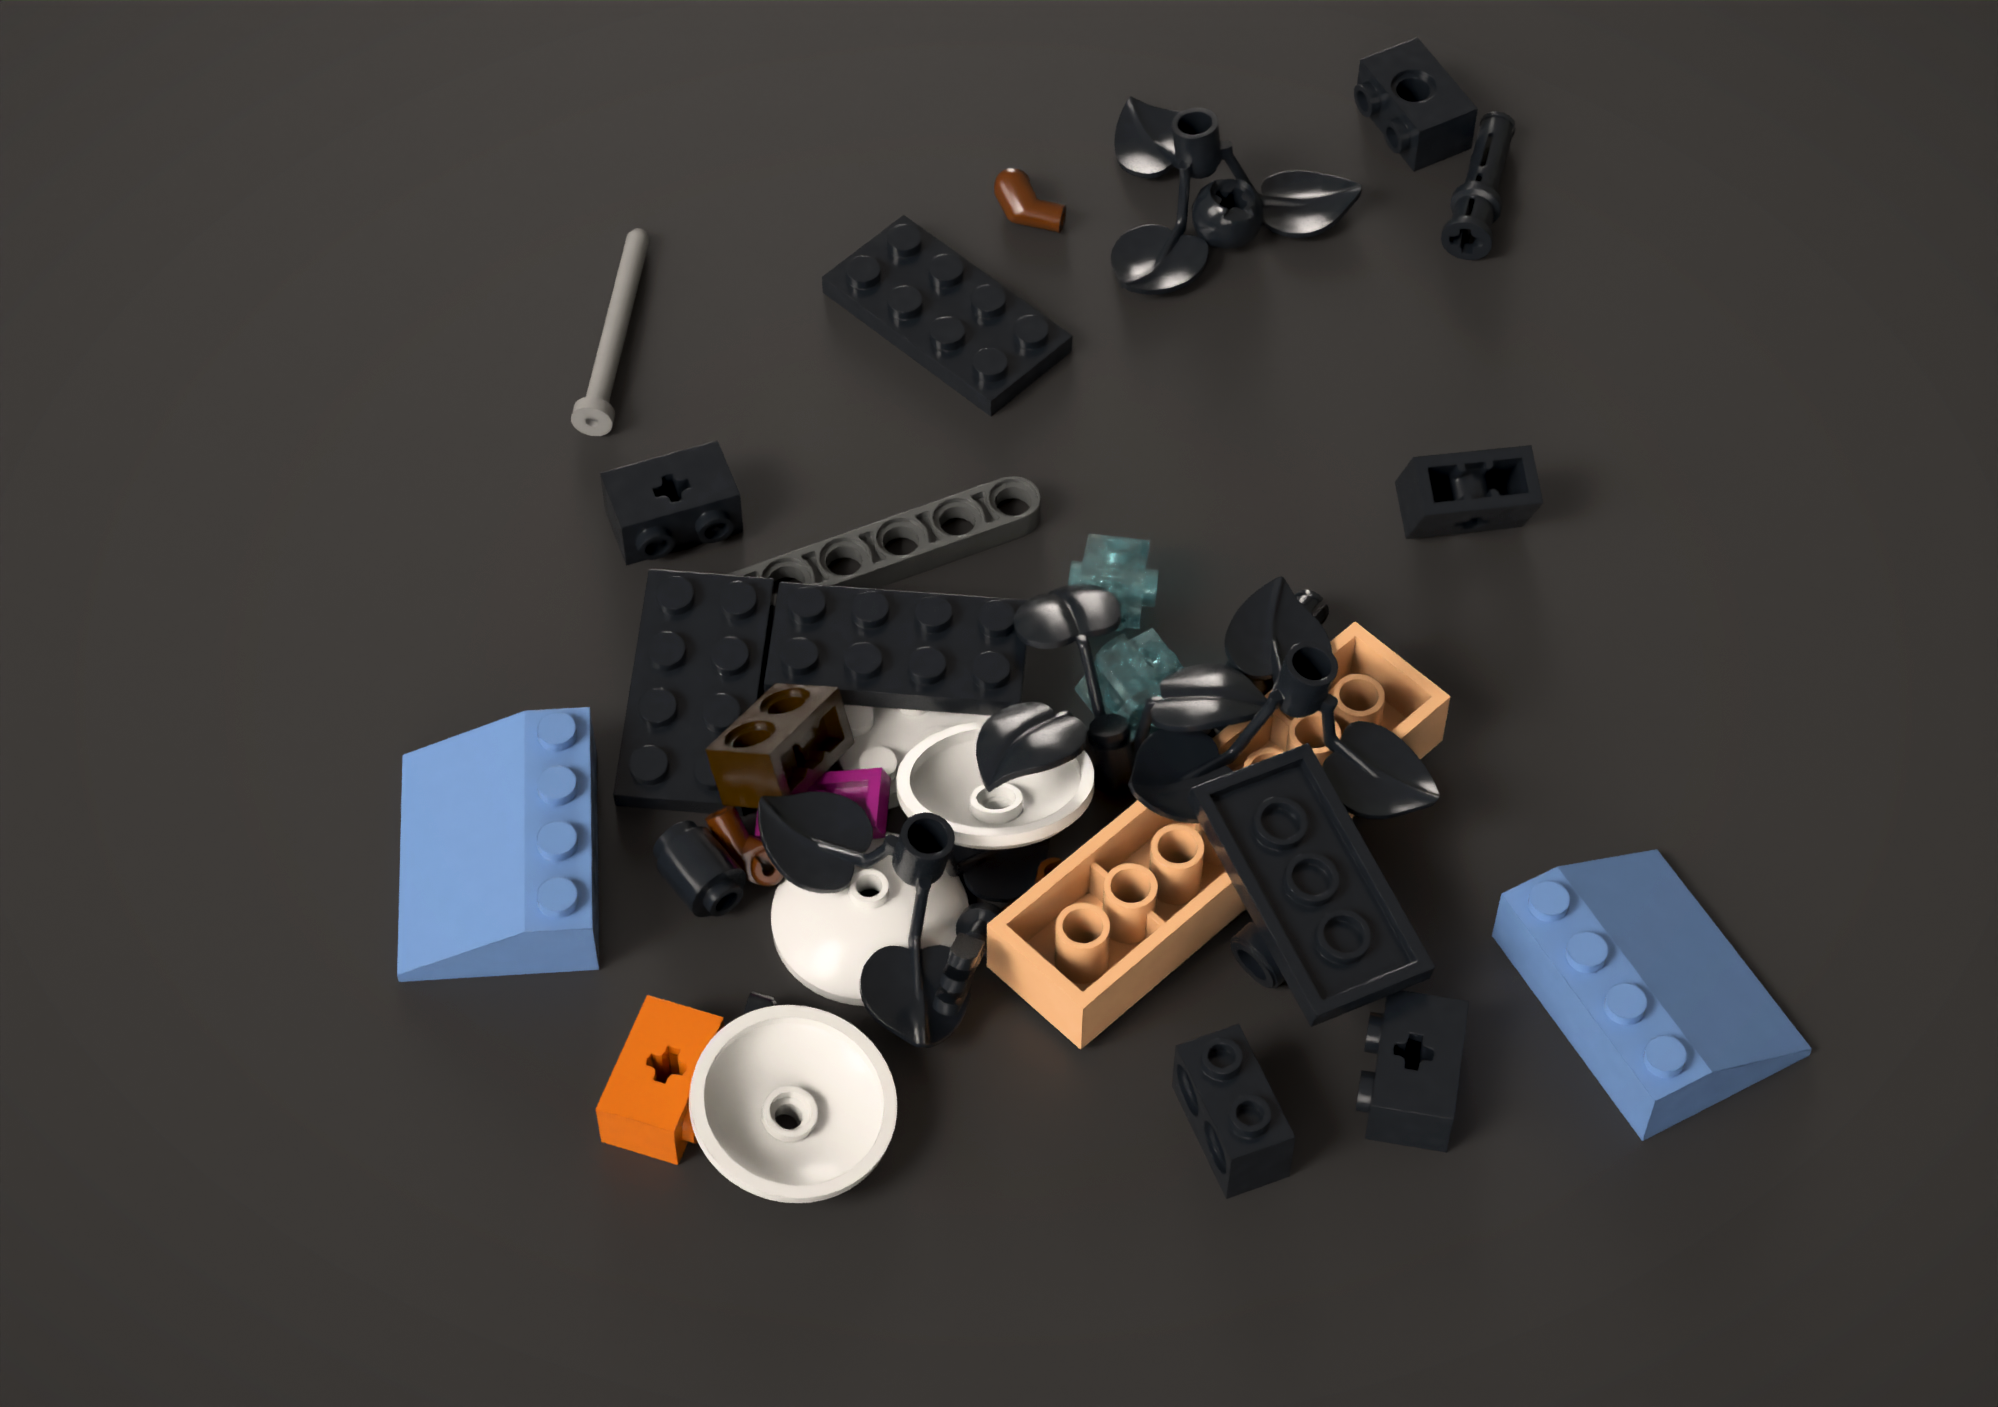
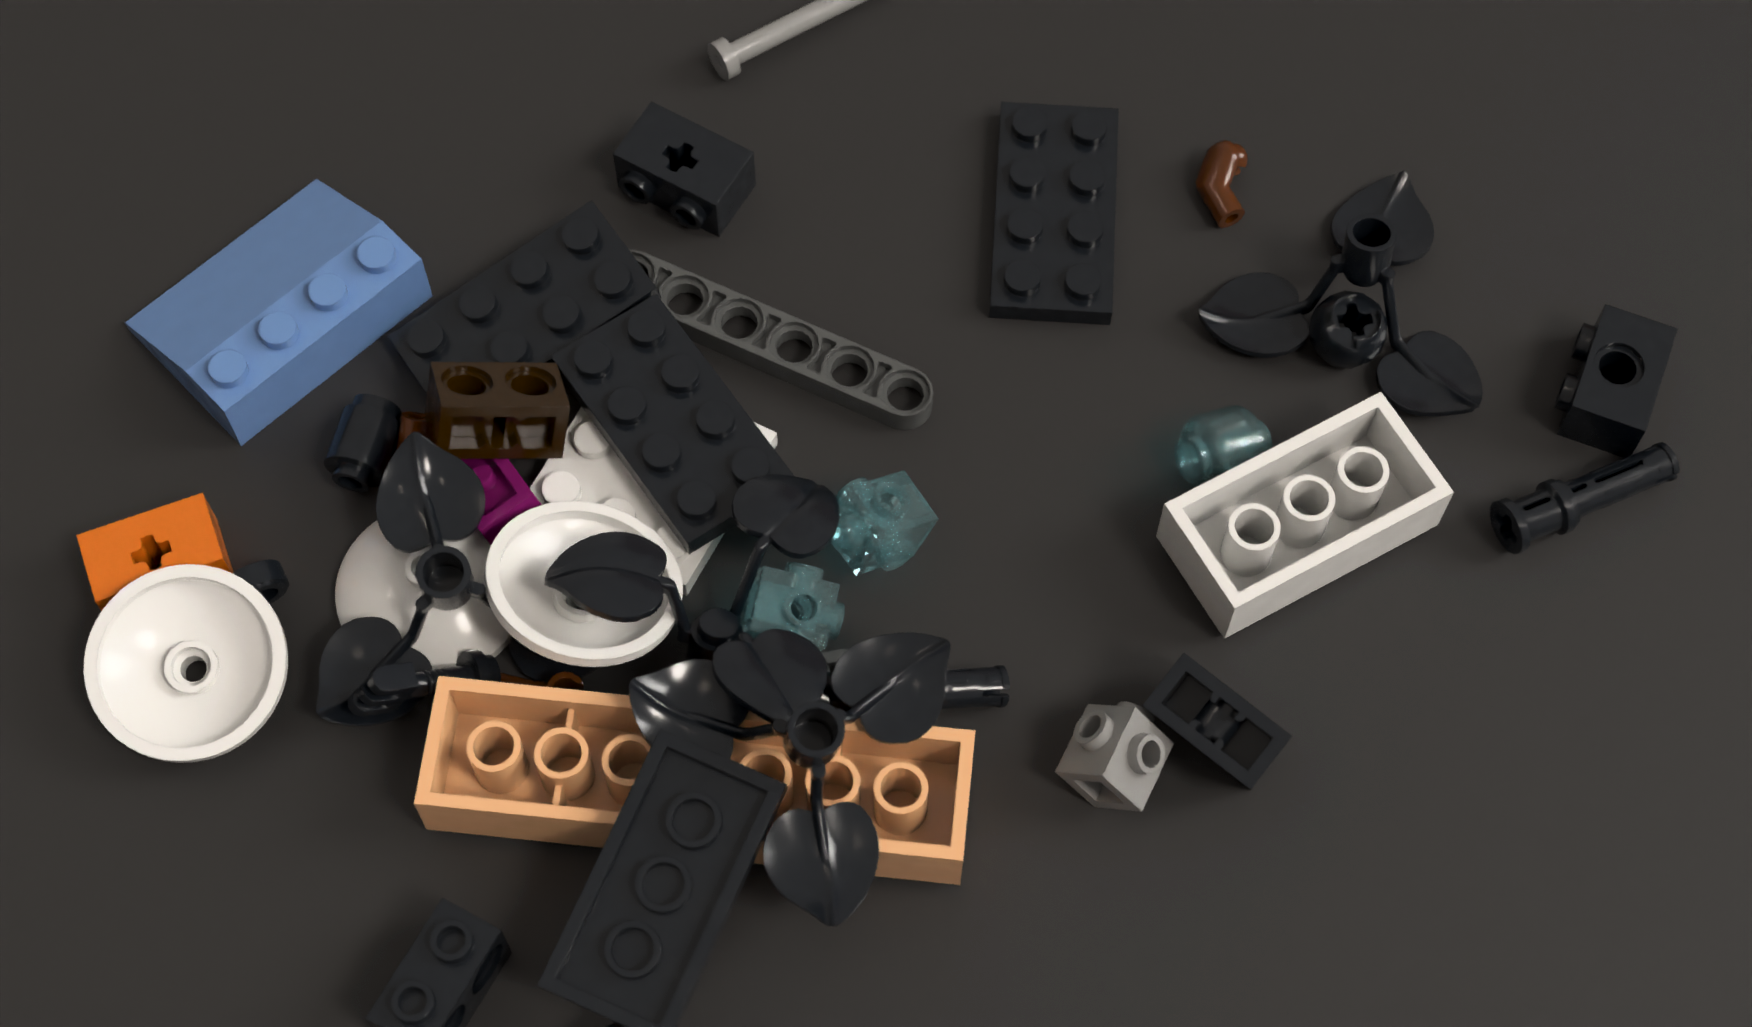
camera: 50 degrees right, 10 degrees up
(1252, 347) = (1218, 442): none -> clear light blue head
(1353, 336) = (1303, 514): none -> white brick
(1437, 570) = (1115, 756): none -> light grey brick

